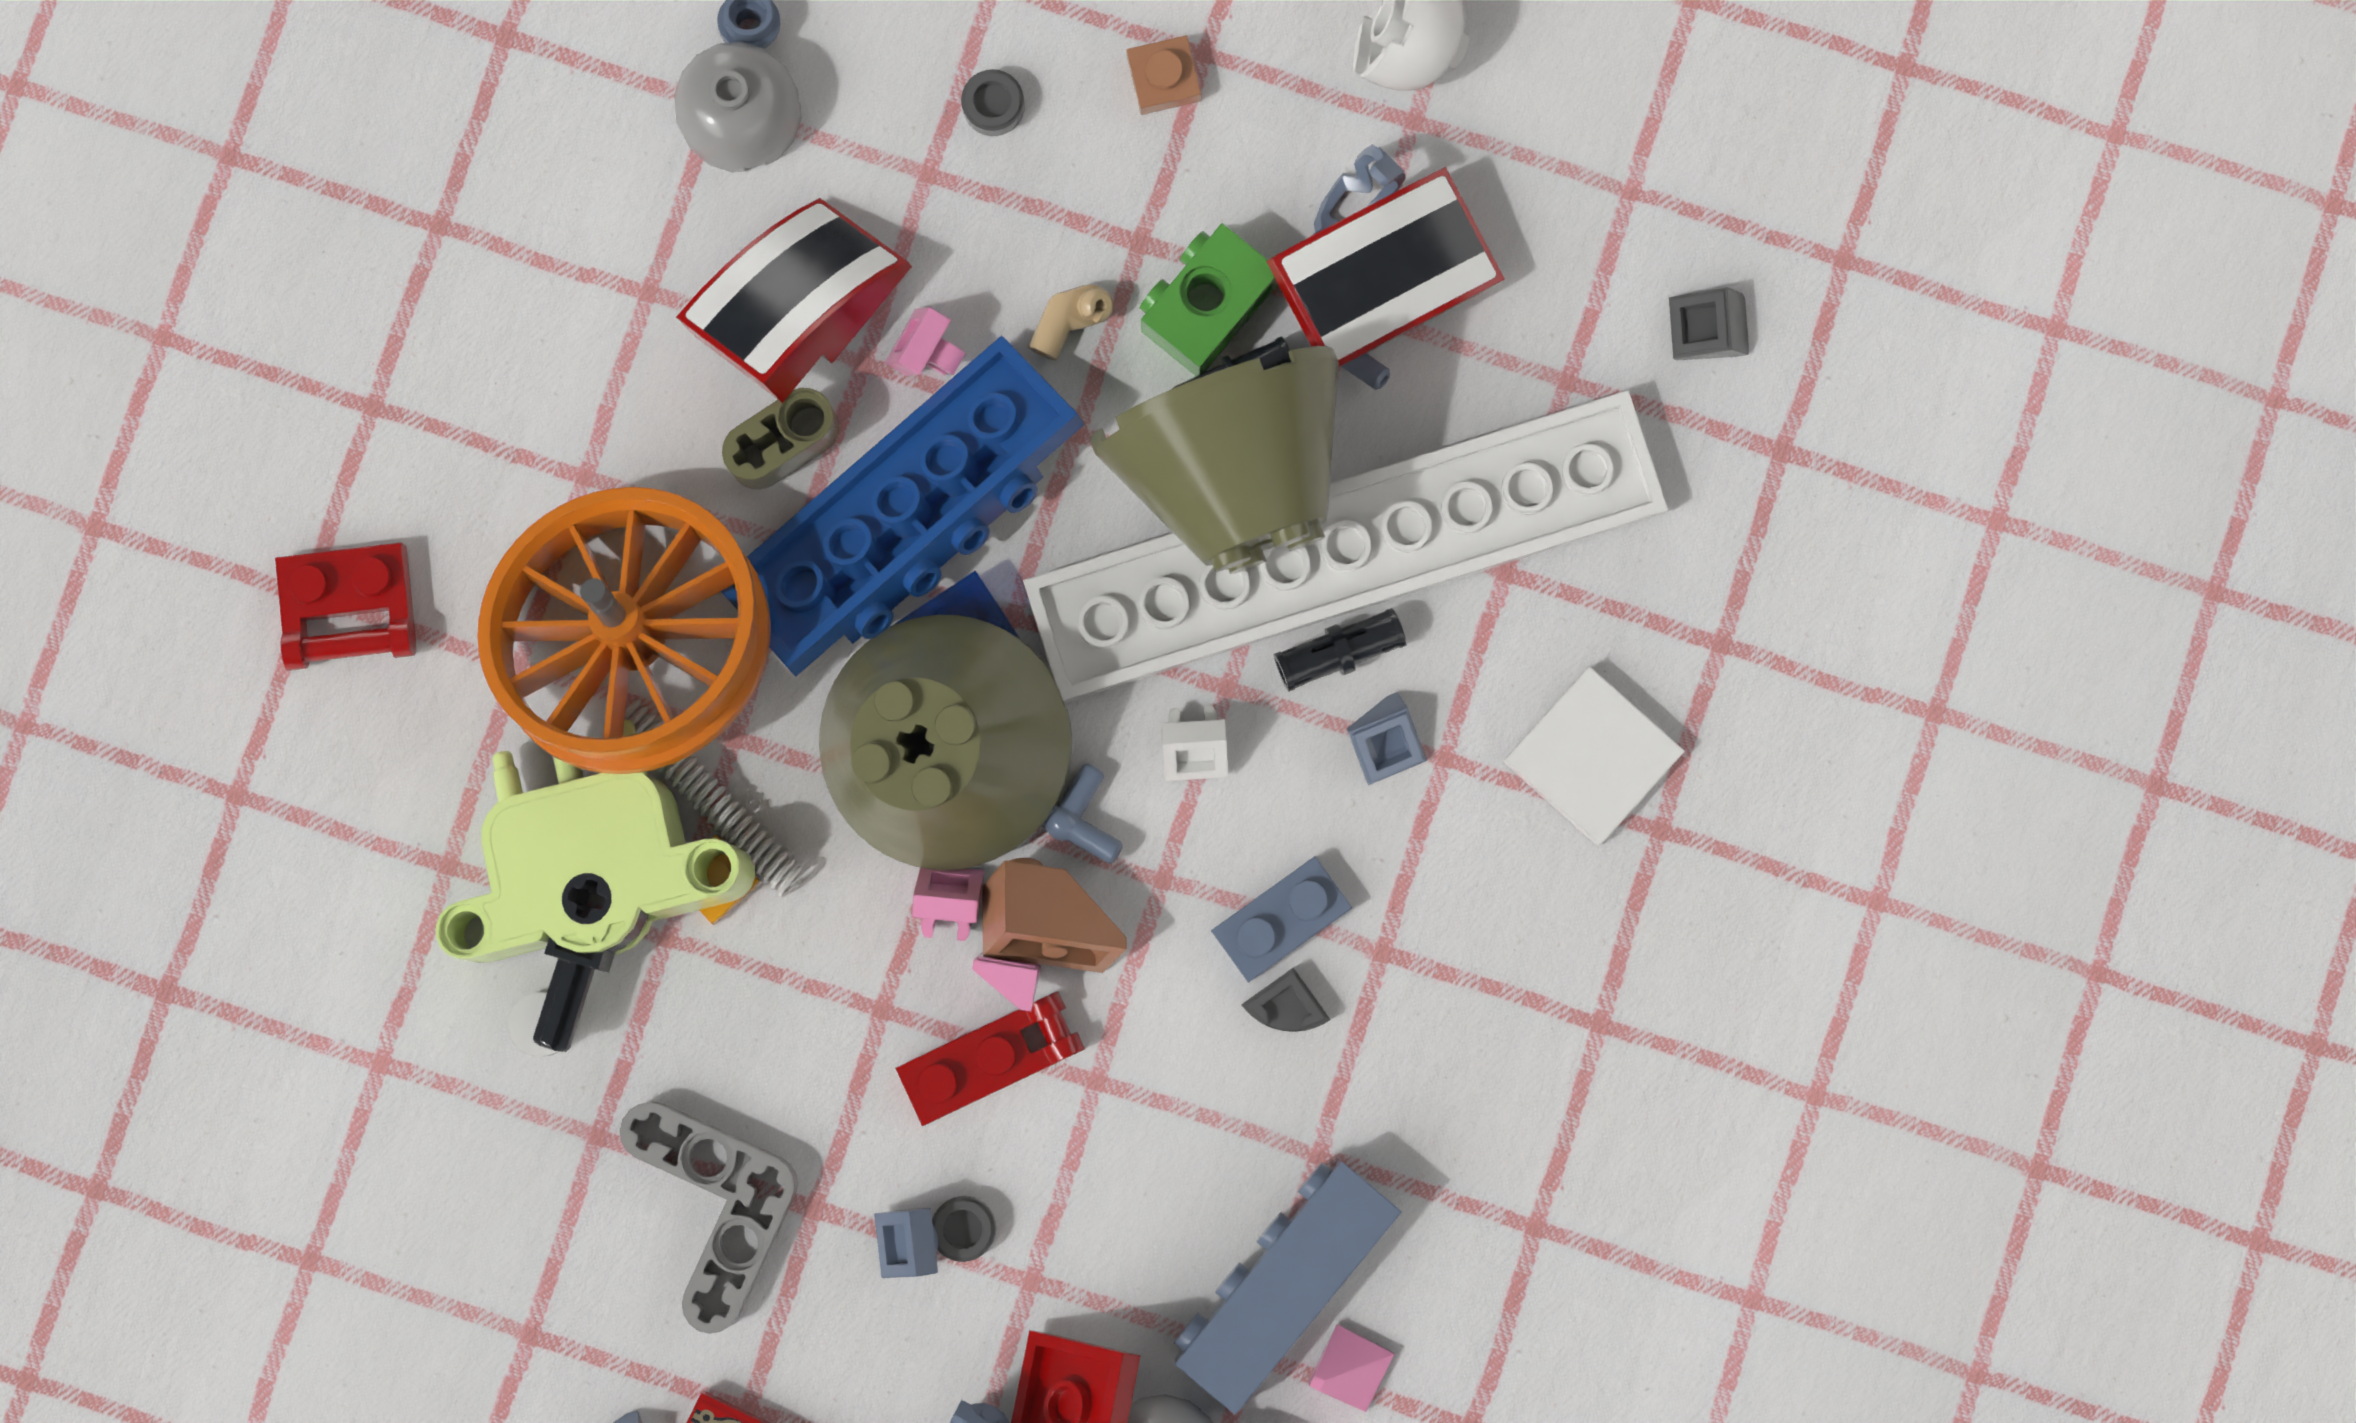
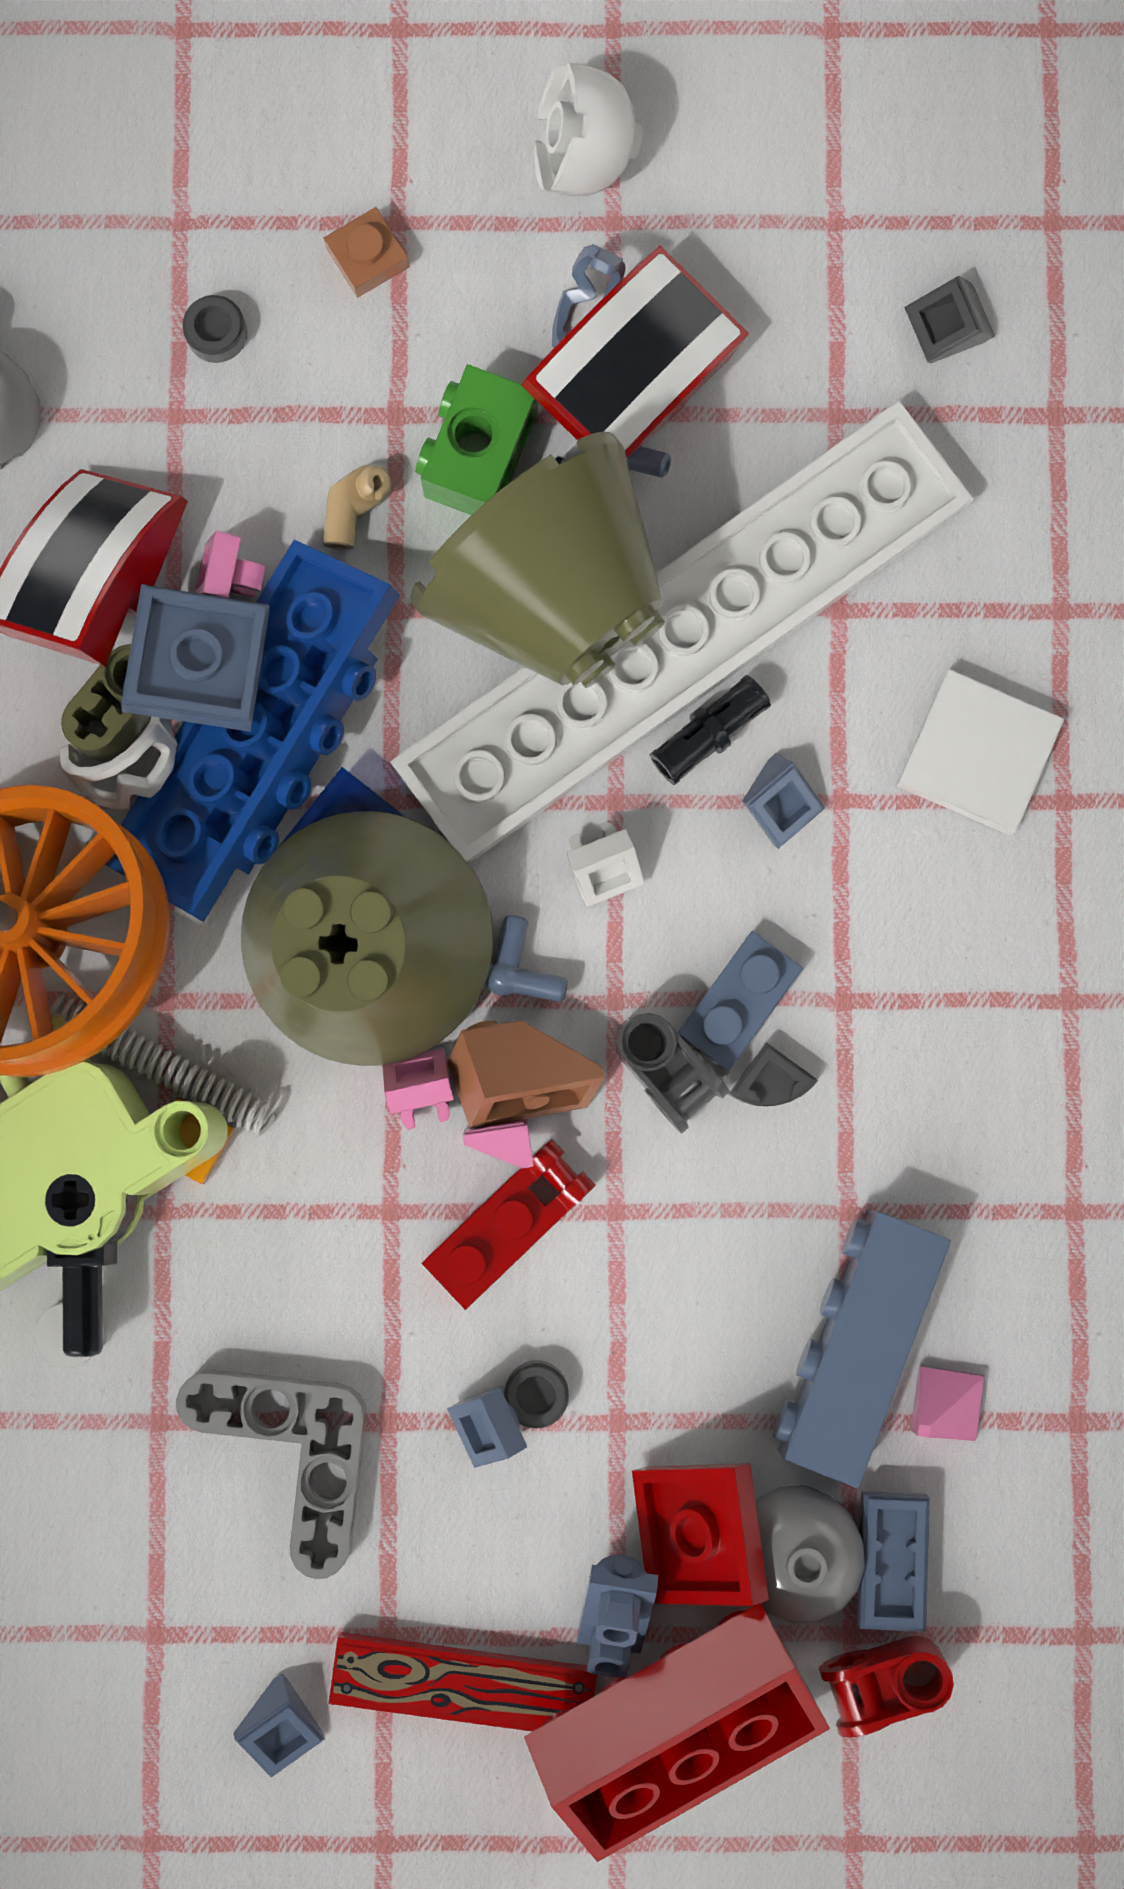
camera: 20 degrees left, 0 degrees up
(809, 483) = (157, 734): none -> white helmet
(870, 423) = (195, 658): none -> sand blue tile
(1192, 966) = (671, 1072): none -> dark grey piece

